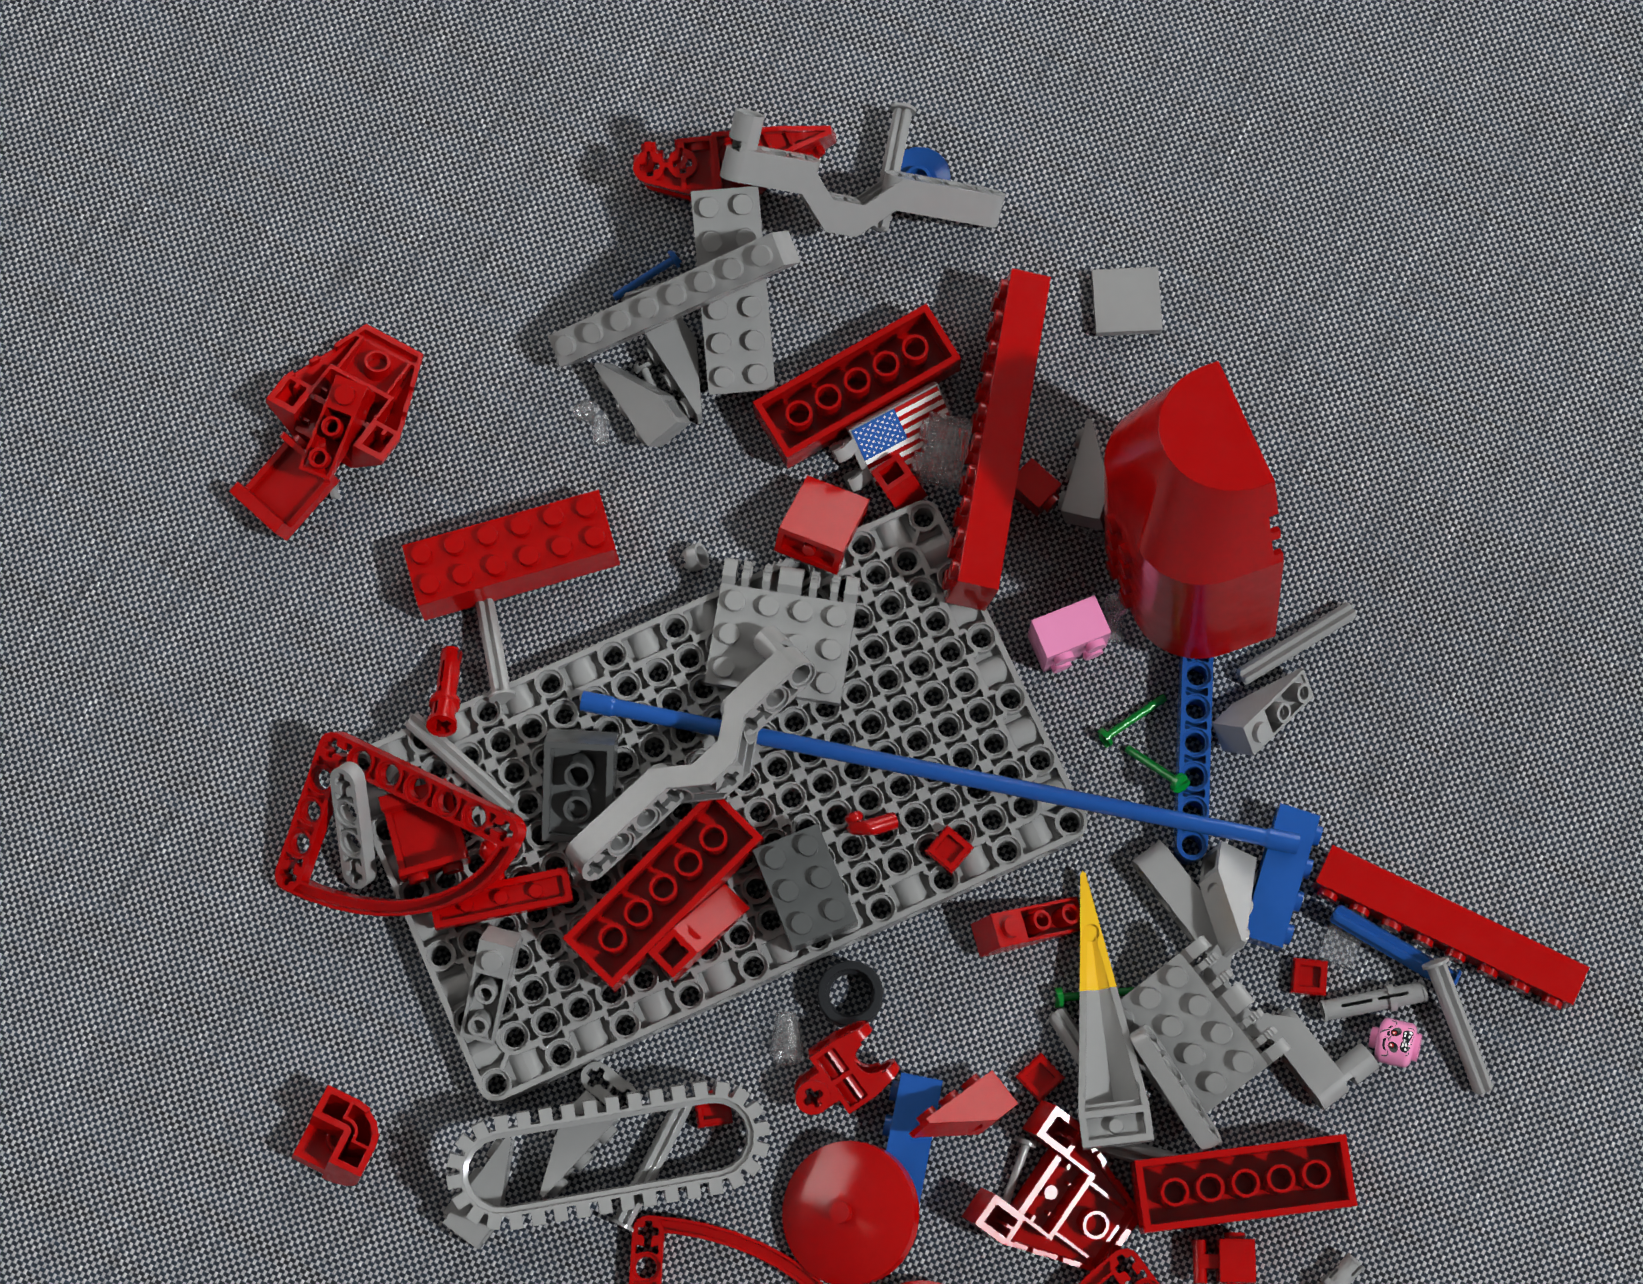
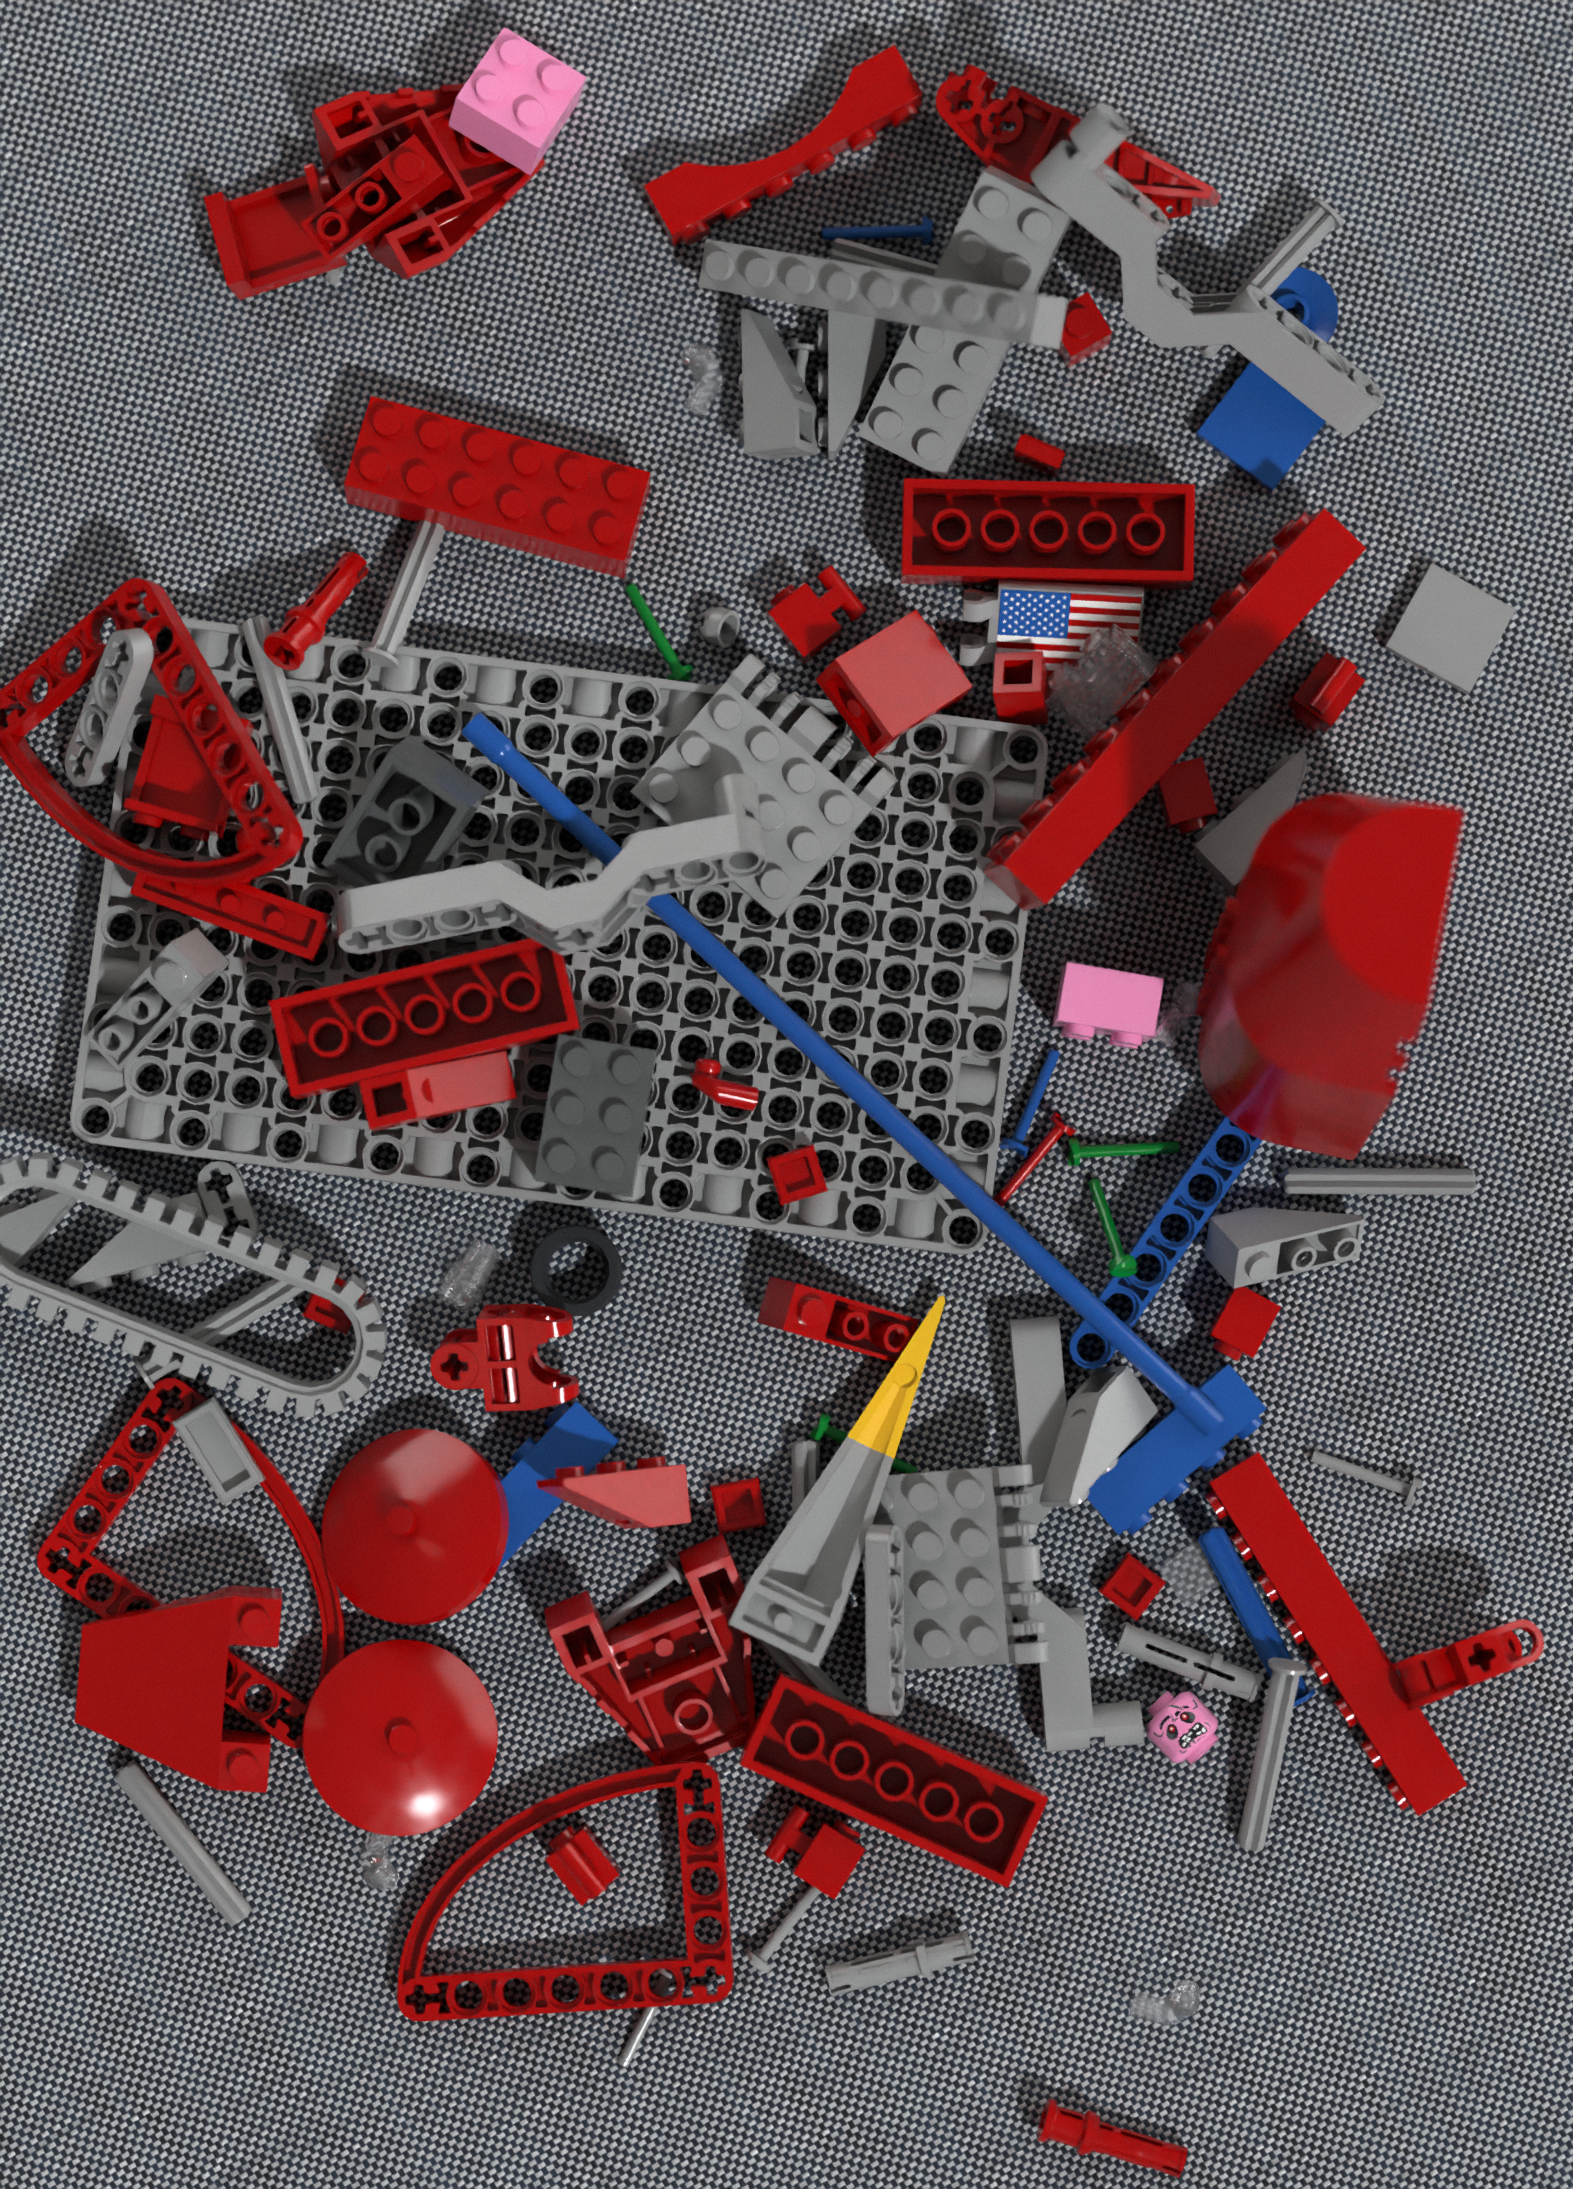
camera: 30 degrees right, 10 degrees up
(384, 325) = (517, 100): none -> bright pink brick
(527, 316) = (699, 195): none -> red arch
(660, 585) = (679, 672): none -> green piece
(698, 1243) = (219, 1450): none -> light grey tile
(746, 521) = (808, 620): none -> red brick
(810, 258) = (1082, 331): none -> red brick
(822, 345) = (1038, 454): none -> red tile
(941, 252) = (1260, 427): none -> blue tile
(1066, 753) = (1031, 1106): none -> blue piece
(1079, 378) = (1325, 693): none -> red brick
(1084, 751) = (1034, 1158): none -> red piece
(1271, 775) = (1242, 1323): none -> red brick
(1434, 815) = (1369, 1476): none -> light grey piece
(1501, 1224) = (1171, 2008): none -> clear arm
(1540, 892) = (1467, 1662): none -> red piece

